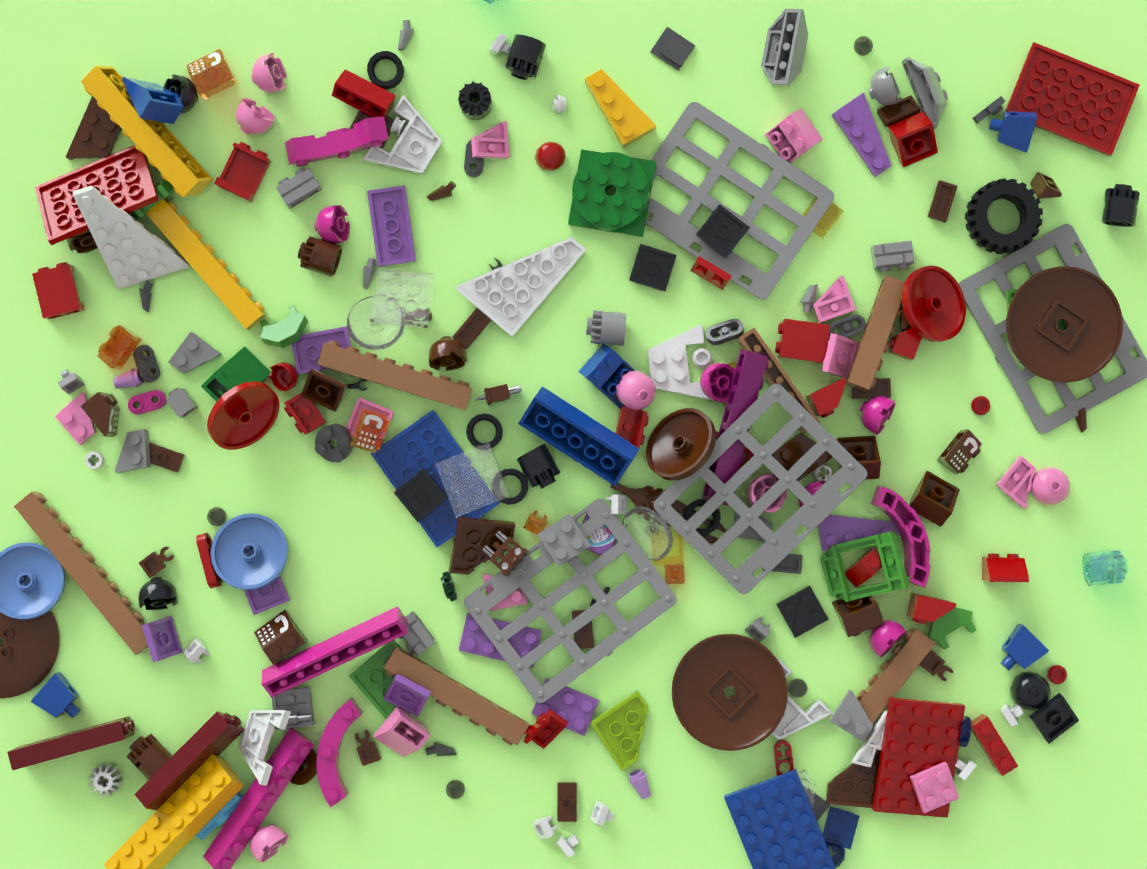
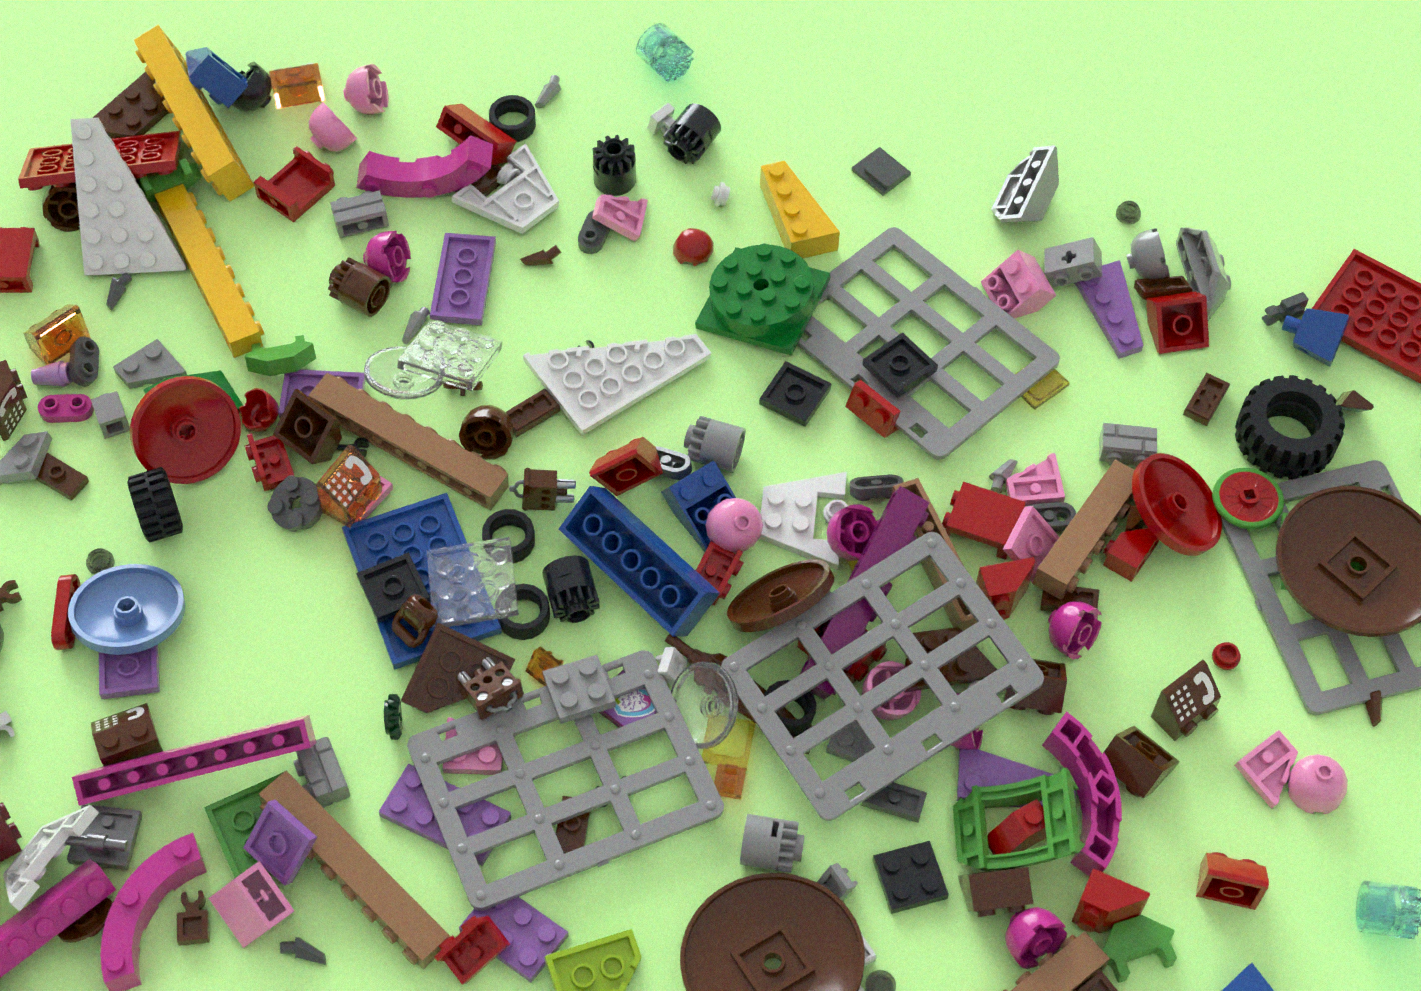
camera: 15 degrees right, 30 degrees down
(241, 473) = (155, 504): none -> black tyre
(446, 514) = (419, 615): none -> reddish brown piece
(551, 362) = (627, 466): none -> red slope
(578, 348) = (673, 463): none -> dark grey plate
(712, 616) = (771, 843): none -> light grey gear
(820, 109) = (1073, 262): none -> light grey brick
(969, 285) = (1238, 484): none -> red wheel

